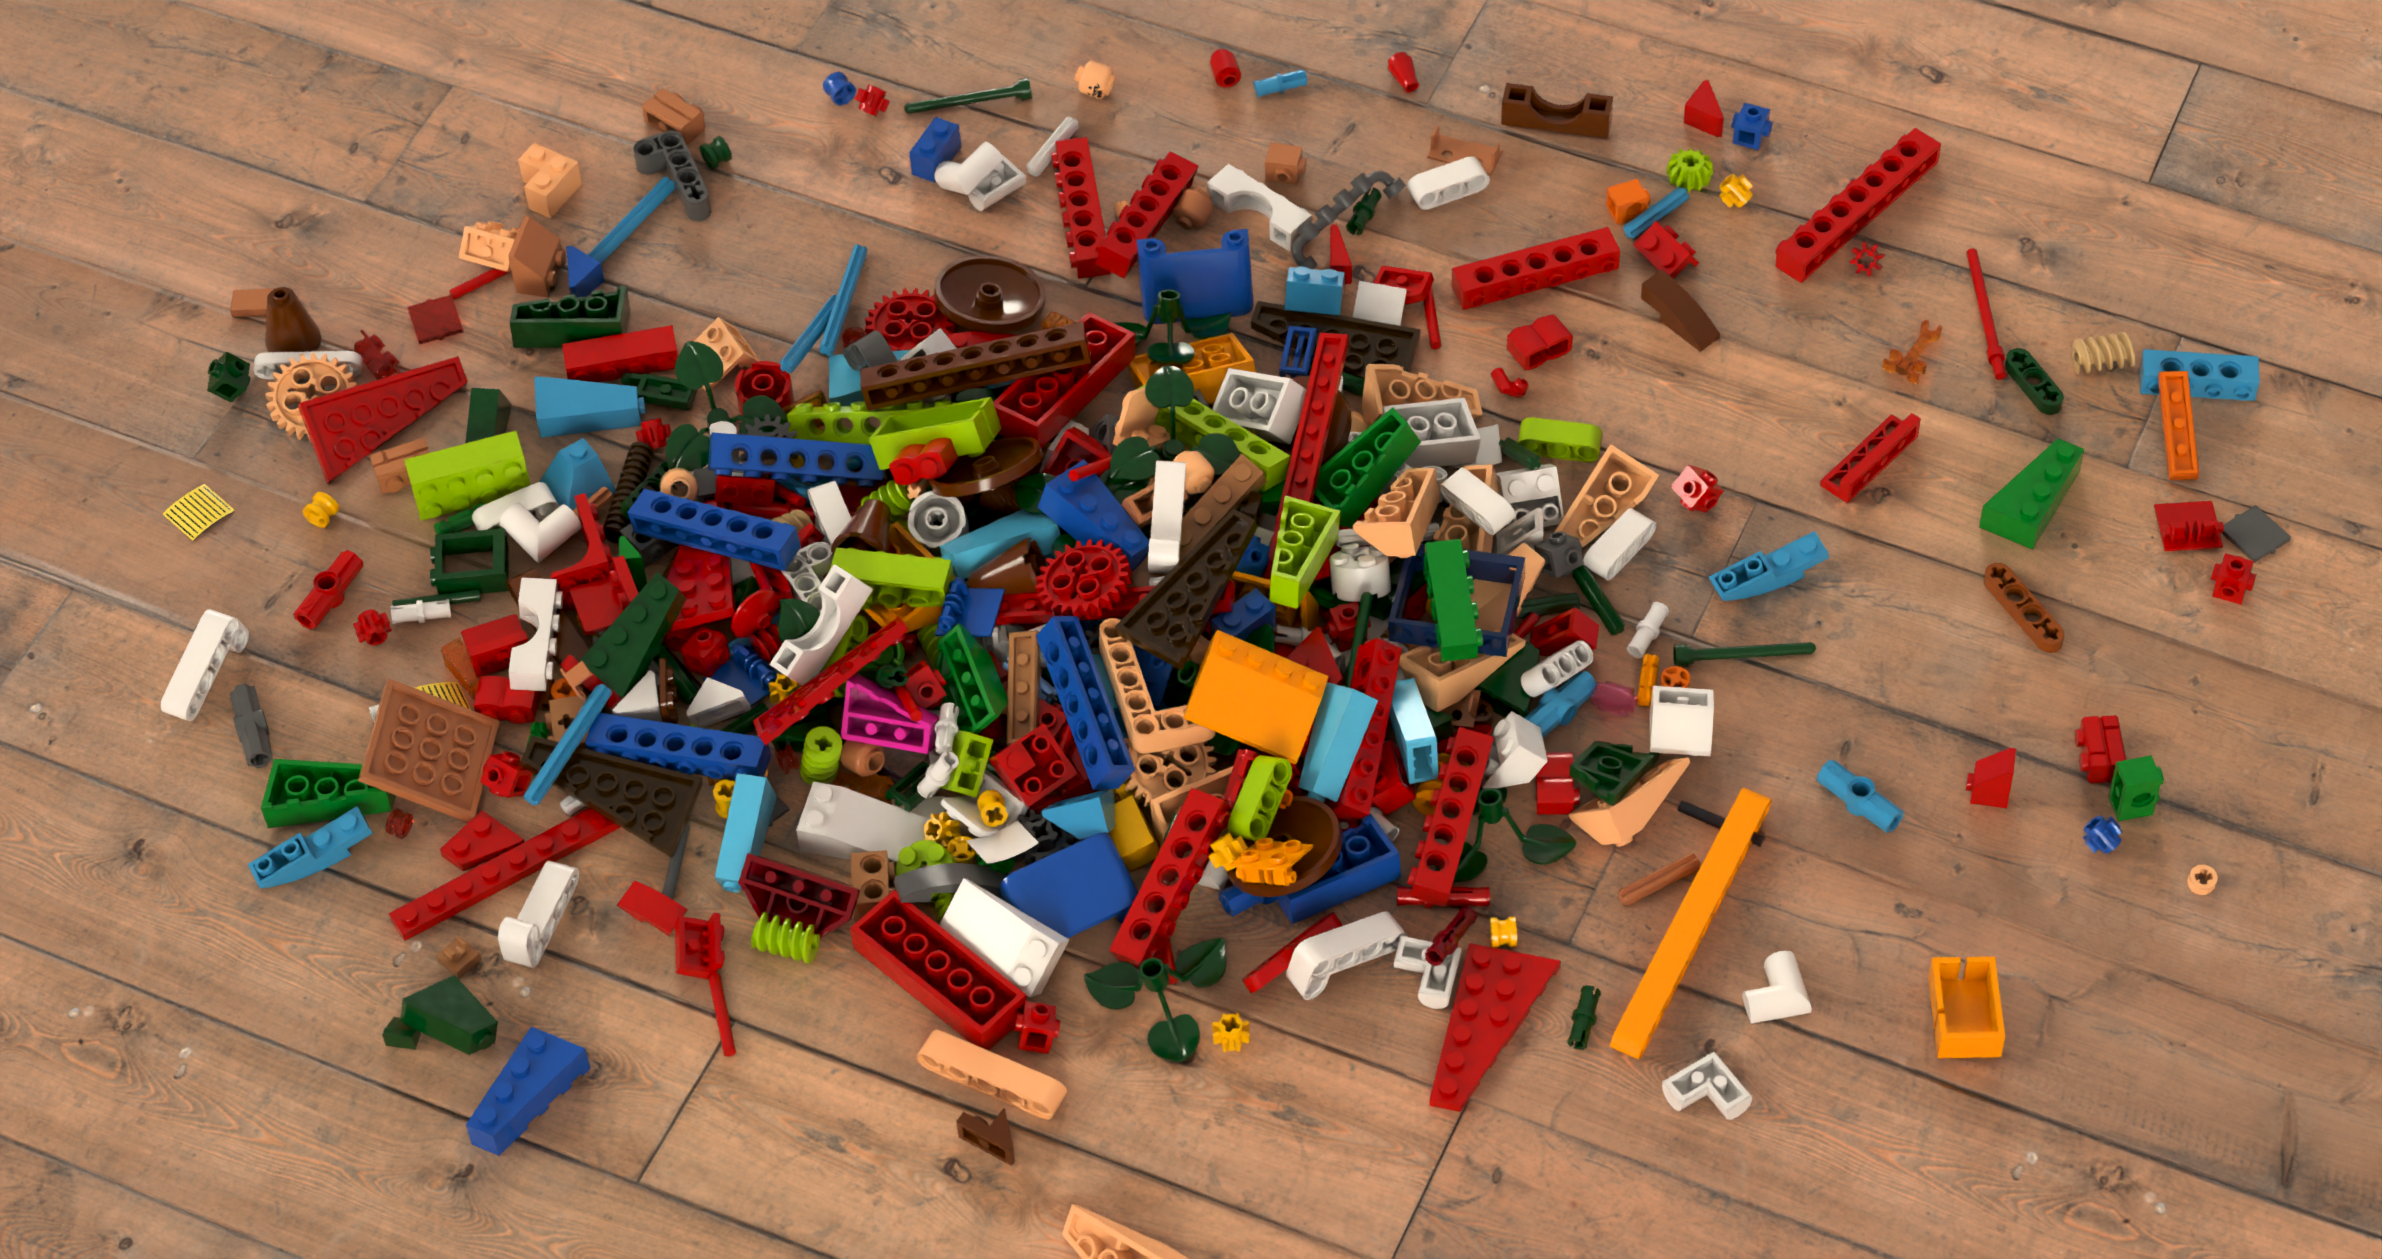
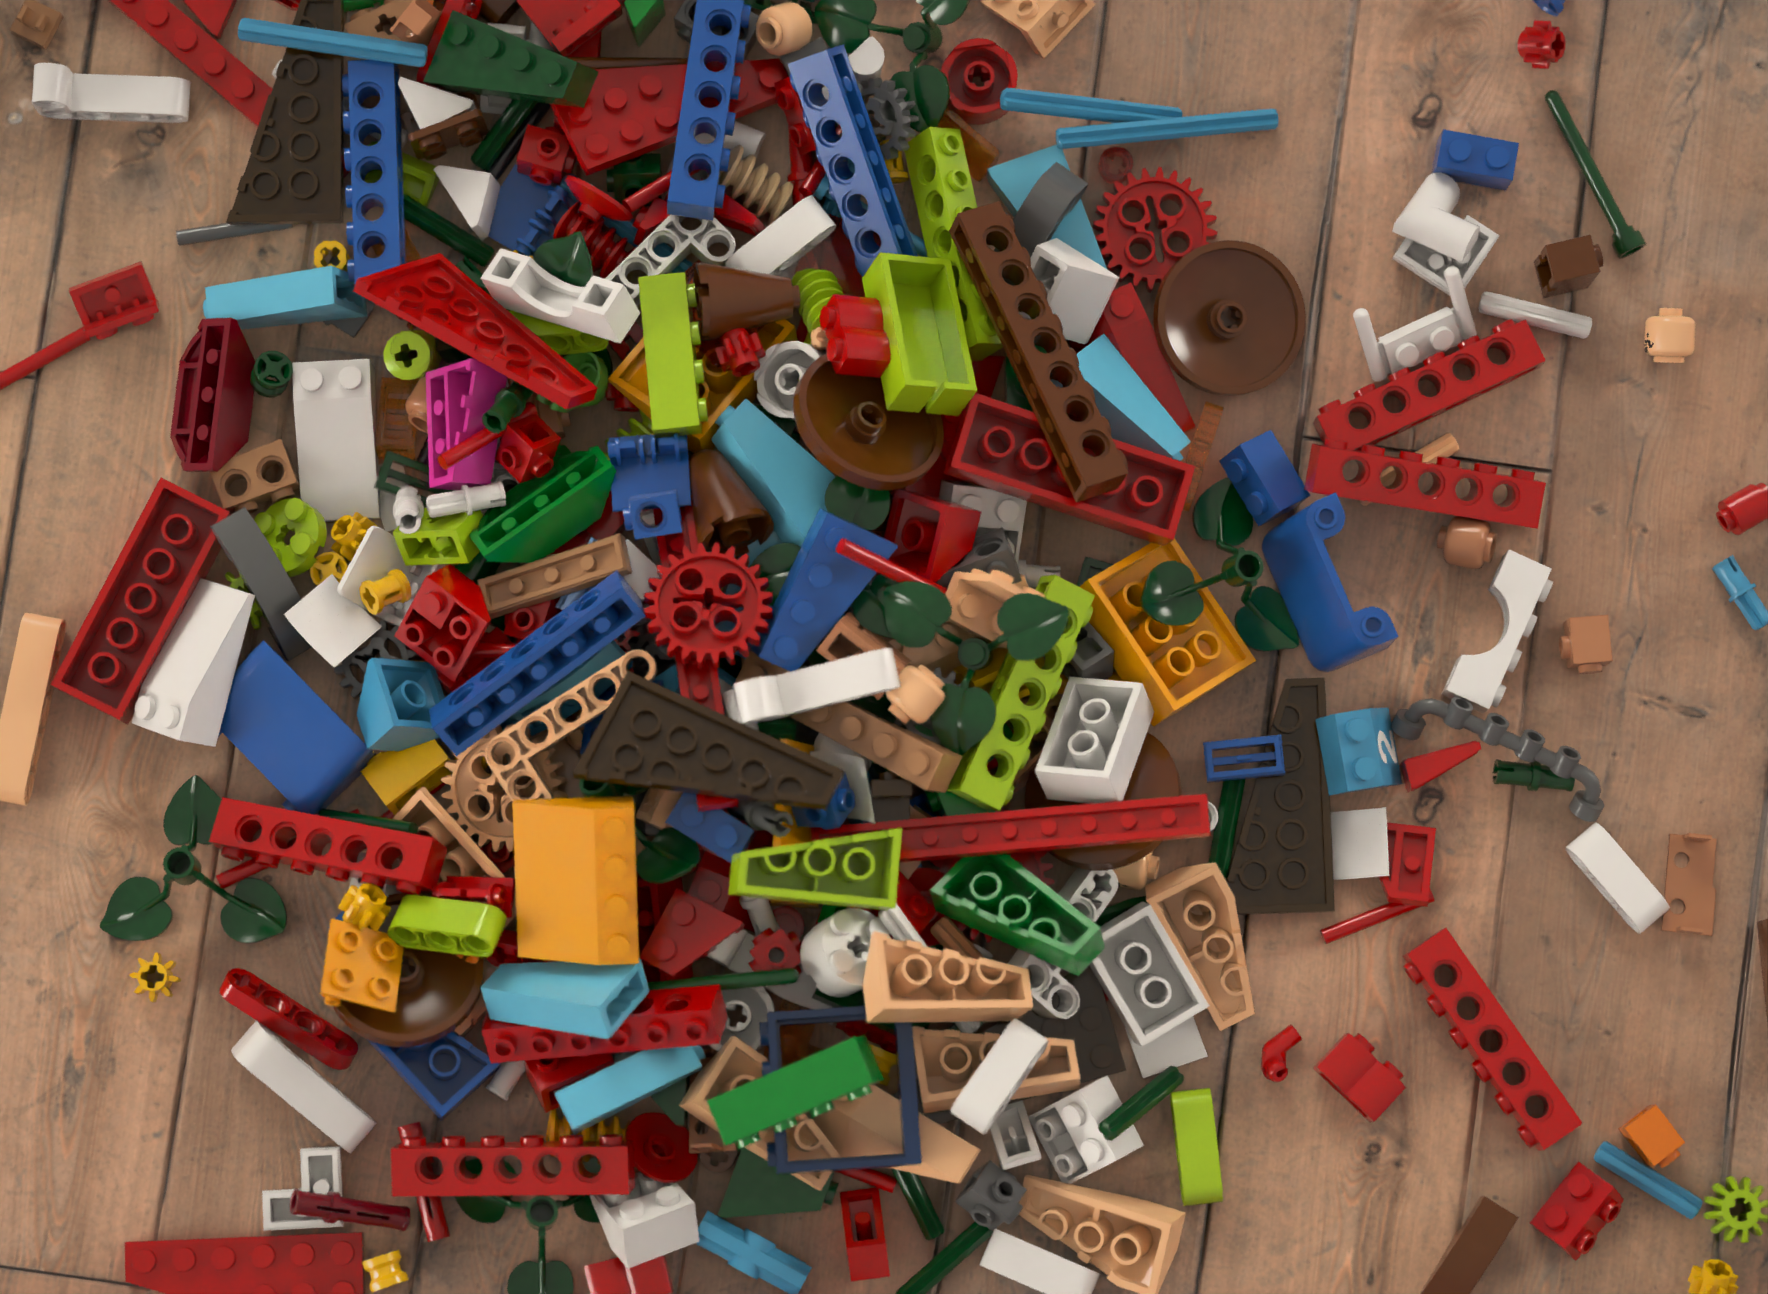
camera: 70 degrees right, 30 degrees up
(652, 906) = (156, 225): red slope -> none
(785, 939) = (149, 401): lime piece -> none
(798, 847) = (273, 365): none -> dark green wheel
(904, 540) = (740, 352): none -> red gear
(1008, 593) = (666, 501): none -> blue brick
(1028, 113) = (1568, 266): none -> reddish brown brick
(1036, 1027) = (85, 737): red brick -> none
(1044, 201) = (1420, 338): none -> white plate
(1109, 299) = (1264, 478): none -> blue brick
(1248, 578) = (762, 817): none -> dark grey pin
(1557, 668) = (794, 1241): white beam -> none

